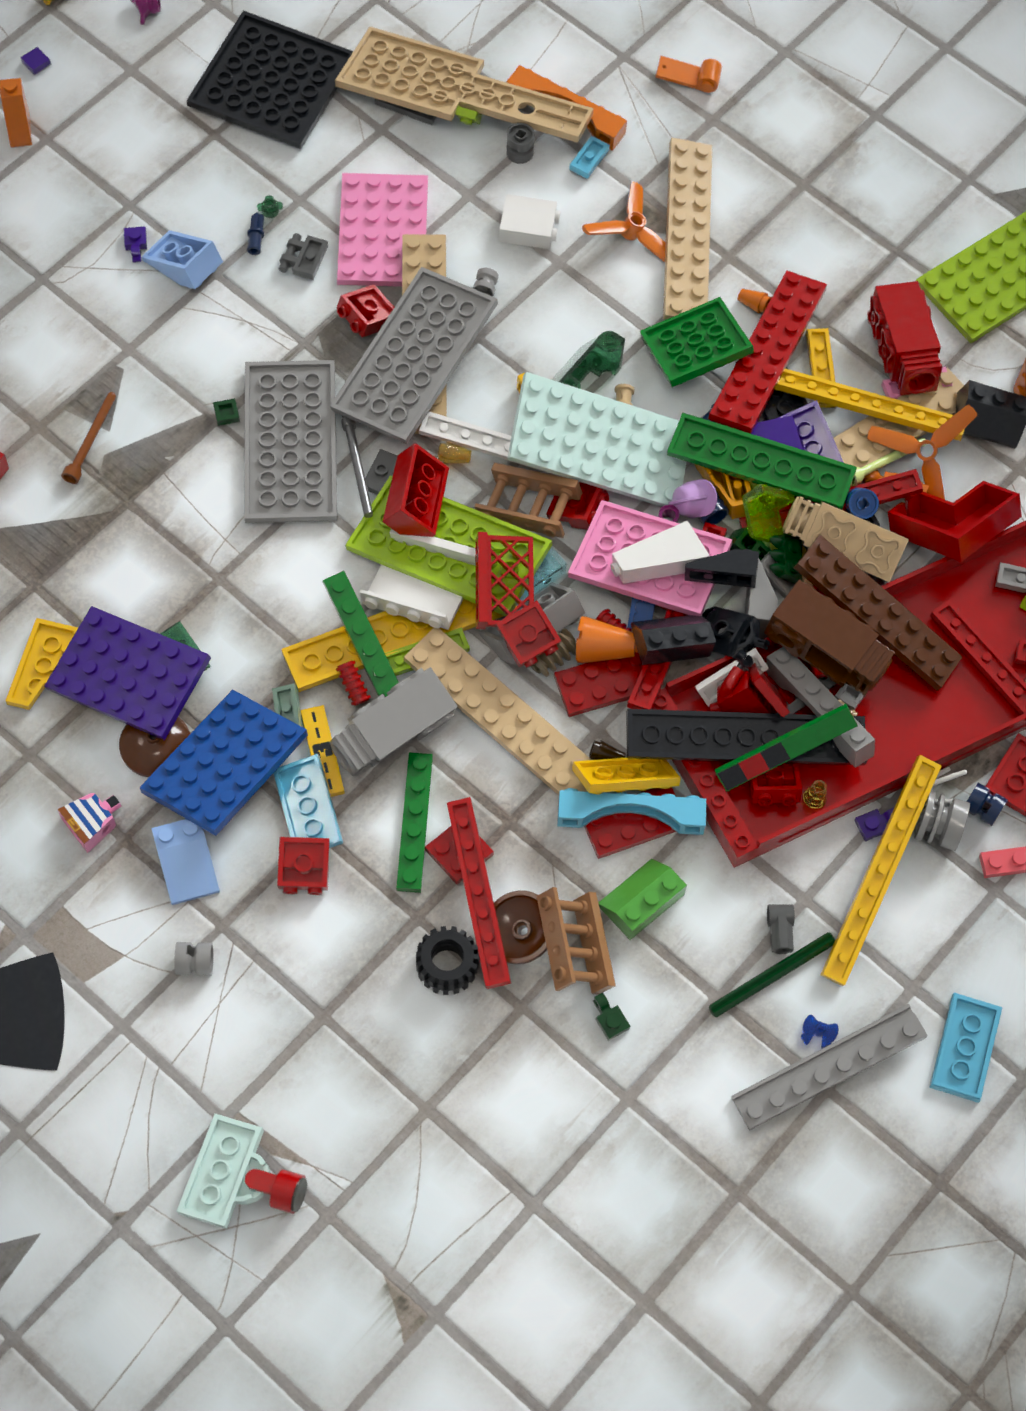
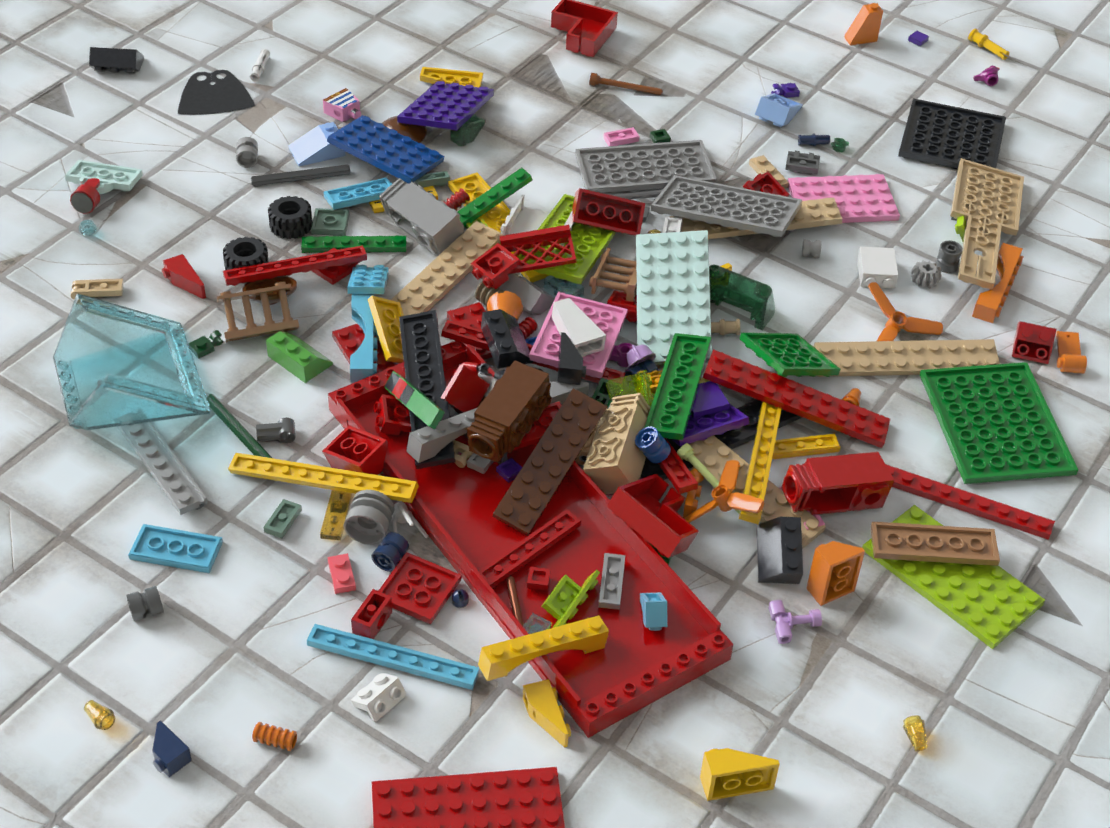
camera: 85 degrees right, 20 degrees down
(219, 459) = (621, 137): none -> bright pink plate
(249, 888) = (300, 175): none -> dark grey axle
(303, 865) = (315, 188): red plate -> none
(315, 300) = (762, 165): none -> tan plate
(341, 1182) = (87, 227): none -> clear light blue plate
(354, 881) = (290, 217): none -> black tyre
(361, 851) = (330, 222): none -> sand green tile
(466, 1048) = (183, 275): none -> red slope
(484, 1165) = (97, 287): none -> tan plate
(518, 799) = (368, 280): none -> medium azure plate
(545, 175) = (926, 274): none -> light grey gear
(589, 157) = (955, 298): medium azure plate -> none
(672, 101) = (1033, 342): none -> red slope
(683, 1108) = (125, 367): none -> clear light blue windscreen
(794, 172) = (997, 423): none -> green plate
(816, 794) = (388, 434): clear yellow cone -> none
(820, 1029) = (194, 456): clear blue piece -> none
(846, 825) = (357, 451): none -> red slope
(902, 240) = (972, 503): none -> red plate
(911, 863) = (335, 515): none -> clear yellow tile
(926, 922) = (282, 518): none -> sand green plate
(985, 272) = (934, 543): none -> medium nougat plate

